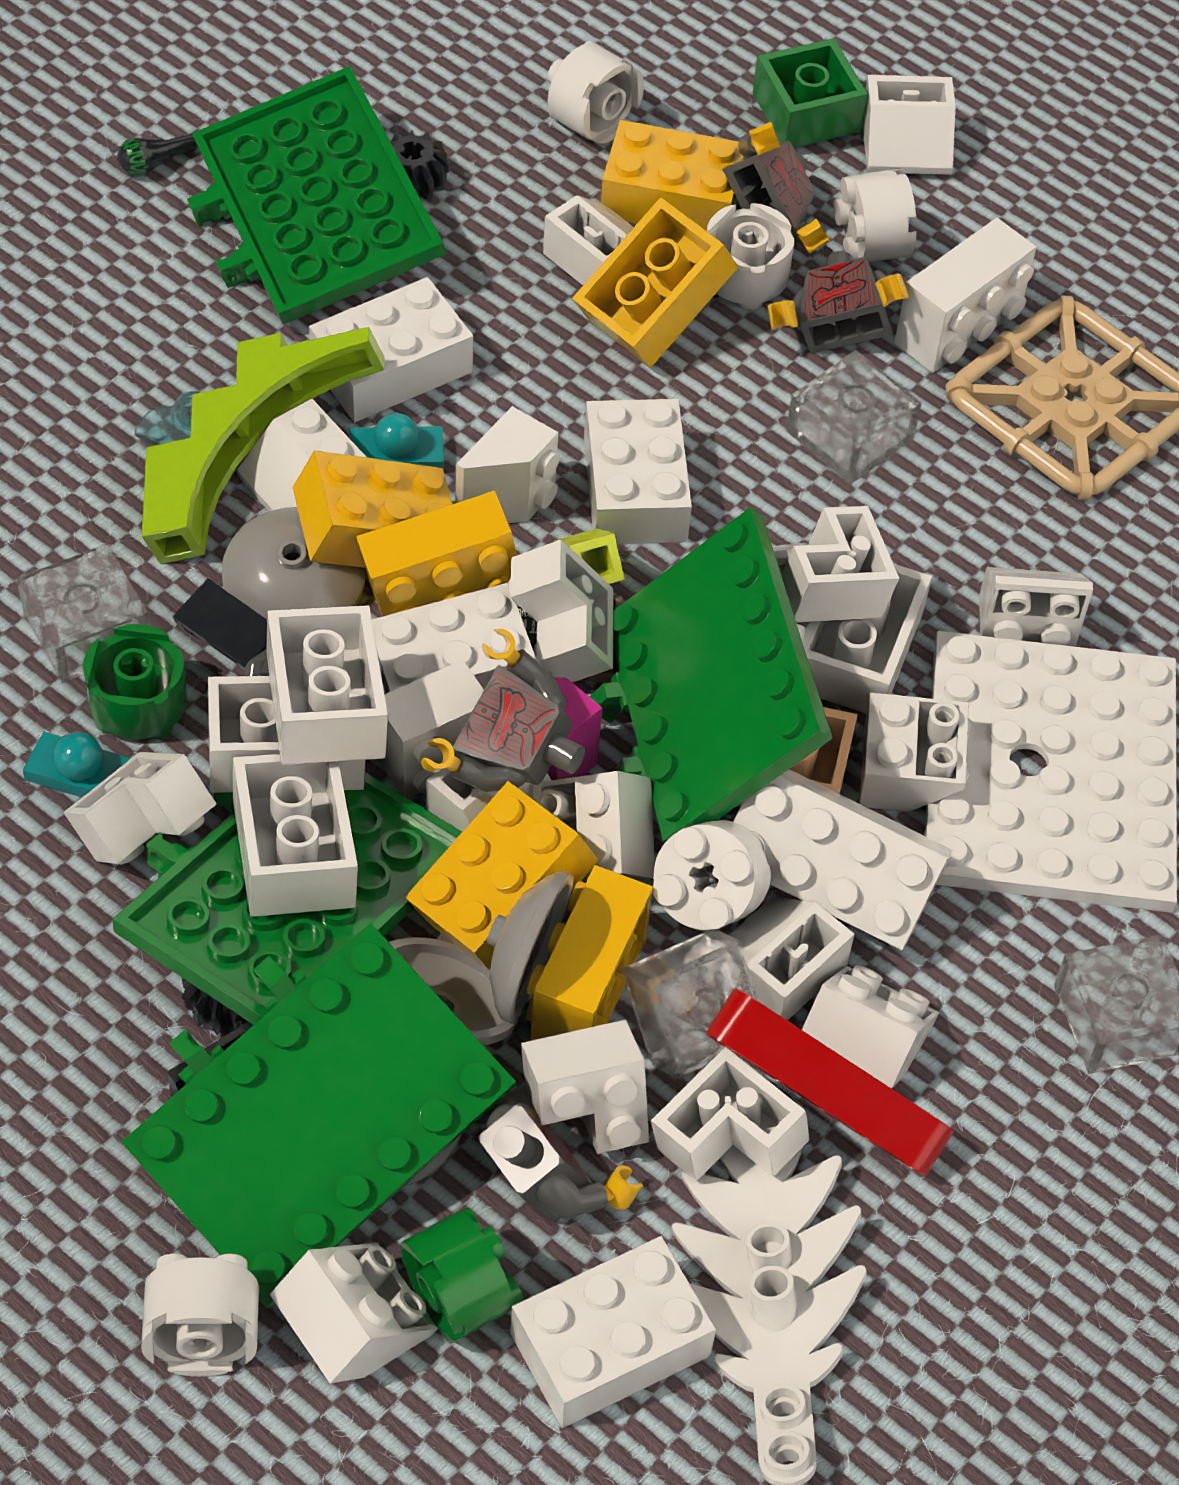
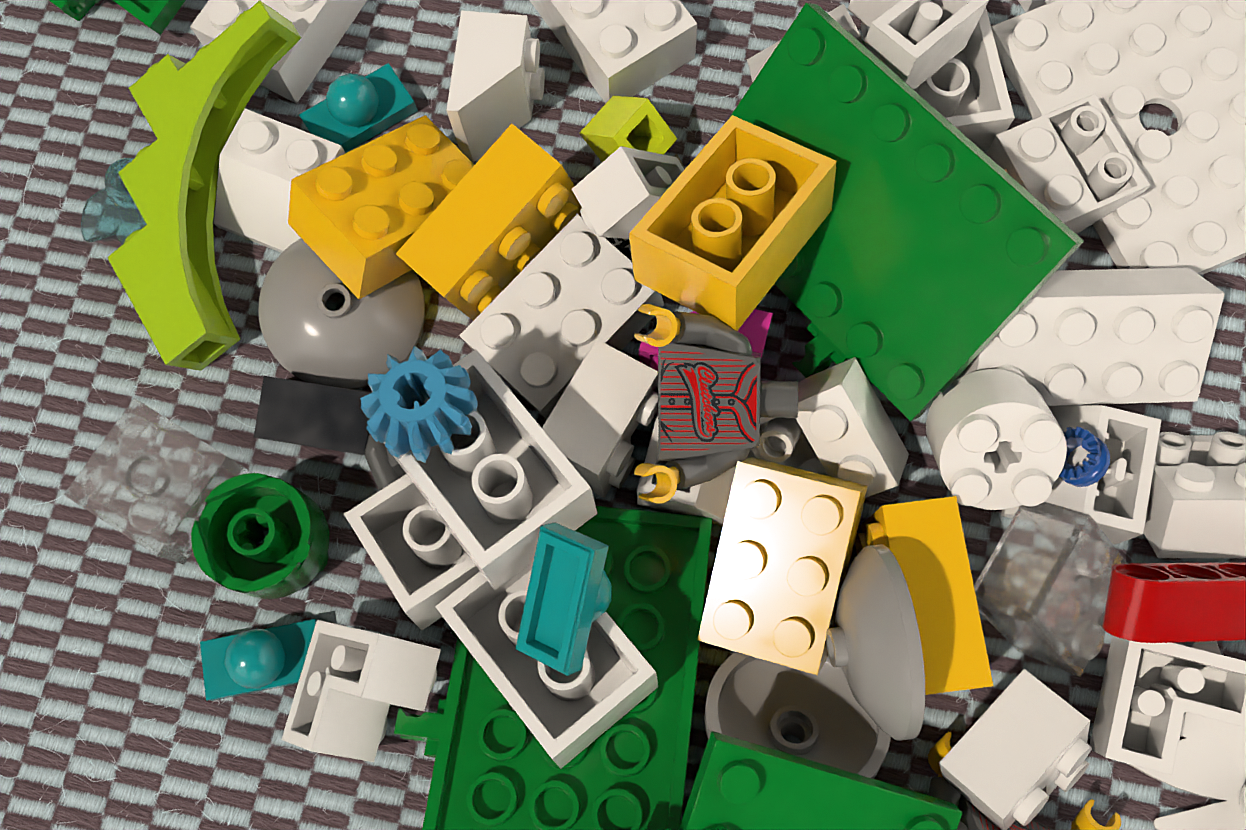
camera: 20 degrees left, 20 degrees up
(307, 607) = (413, 383): none -> dark azure gear
(326, 777) = (563, 597): none -> teal tile
(607, 623) = (733, 221): none -> yellow brick
(770, 922) = (1098, 458): none -> blue bush

